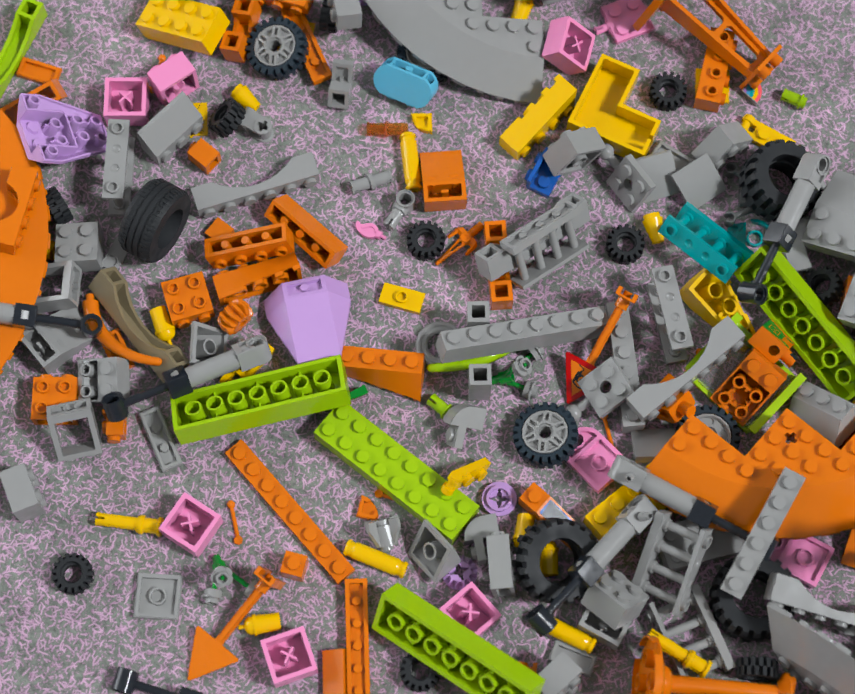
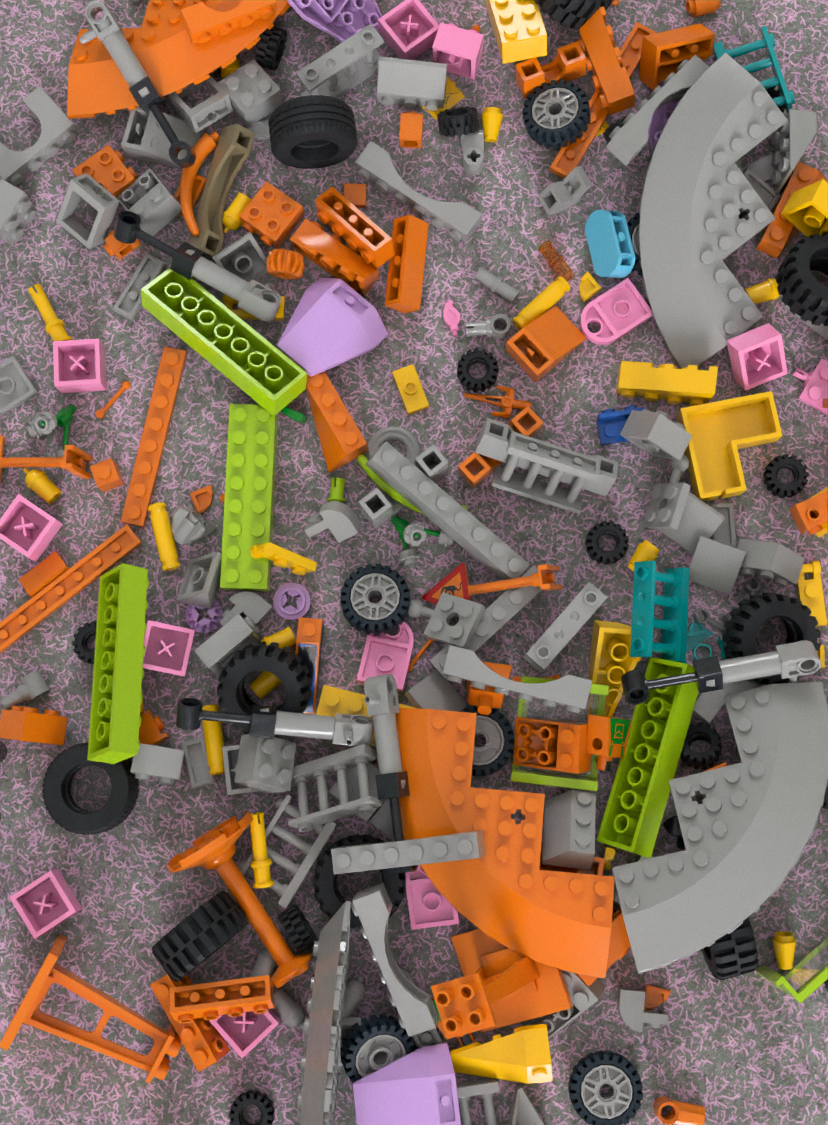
camera: 60 degrees right, 10 degrees up
(458, 116) = (615, 312): none -> bright pink plate

